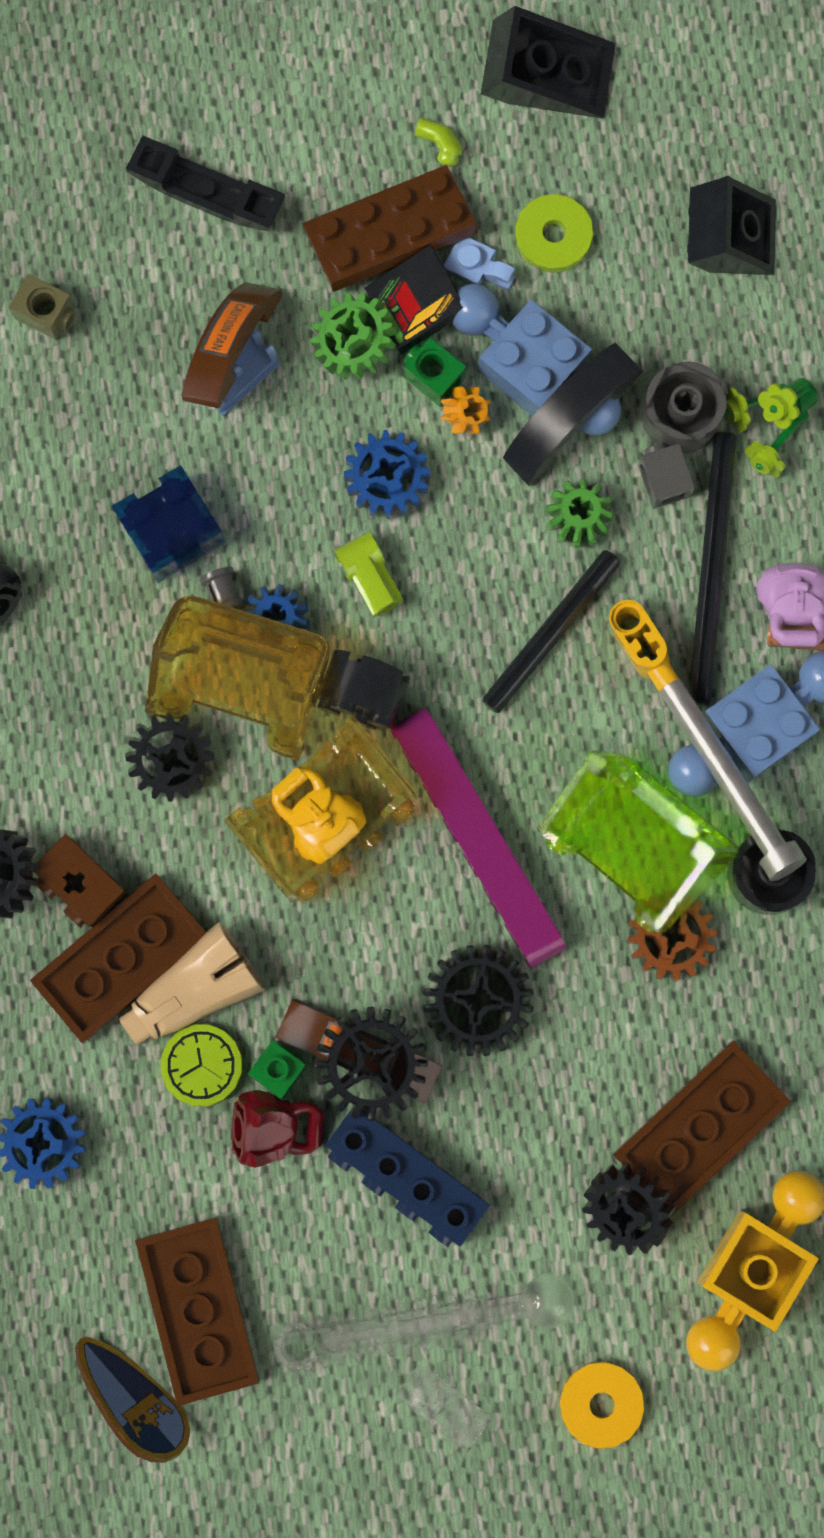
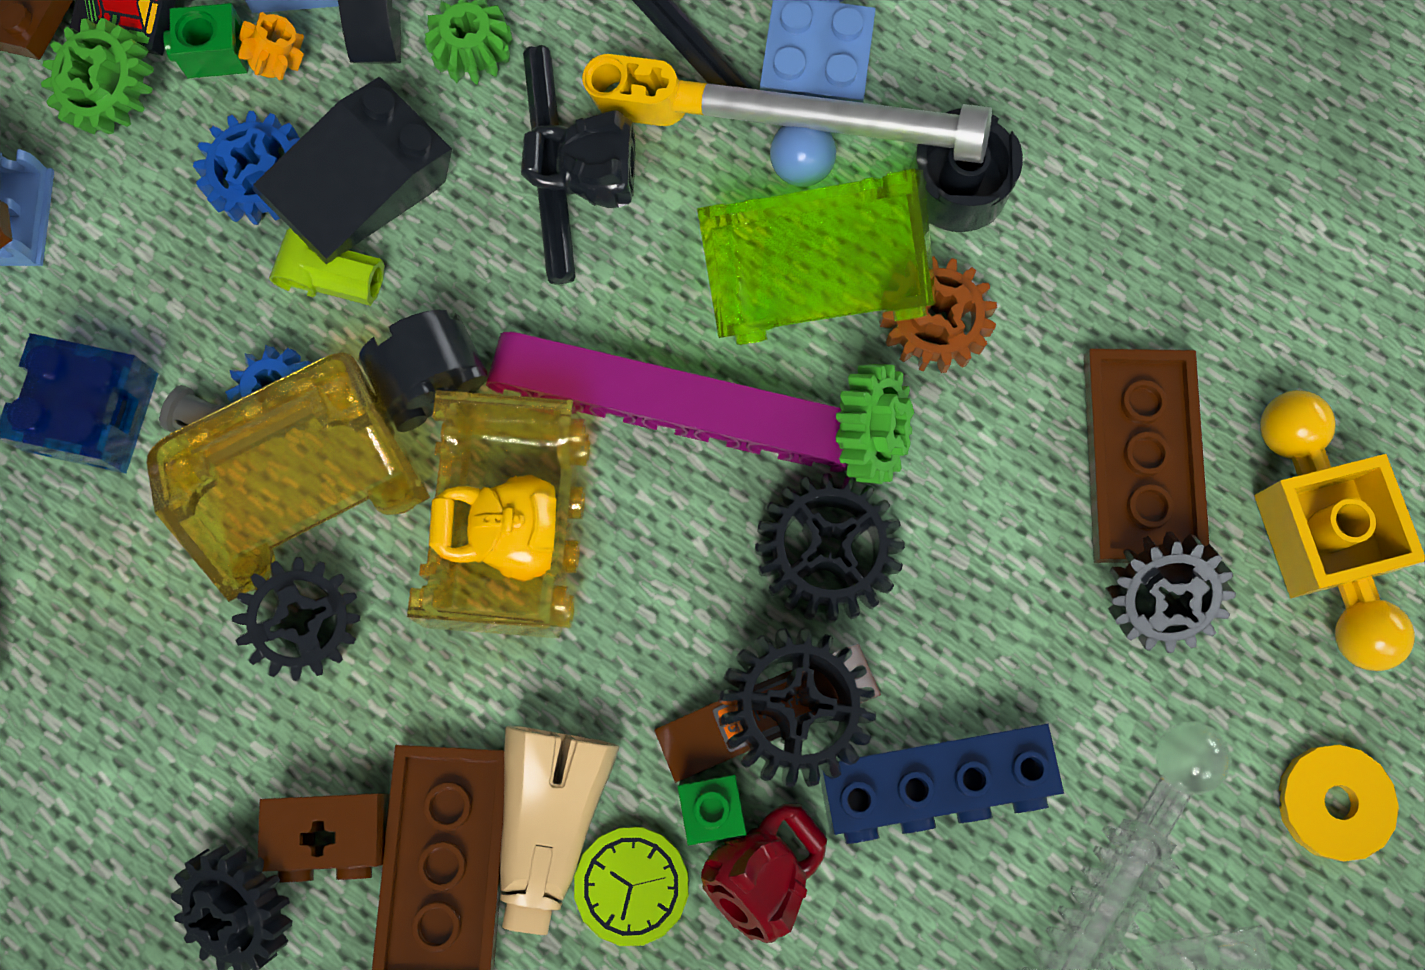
camera: 50 degrees left, 5 degrees down
(436, 537) = (355, 170): none -> black slope
(567, 961) = (874, 423): none -> bright green gear
(571, 658) = (591, 159): none -> black piece

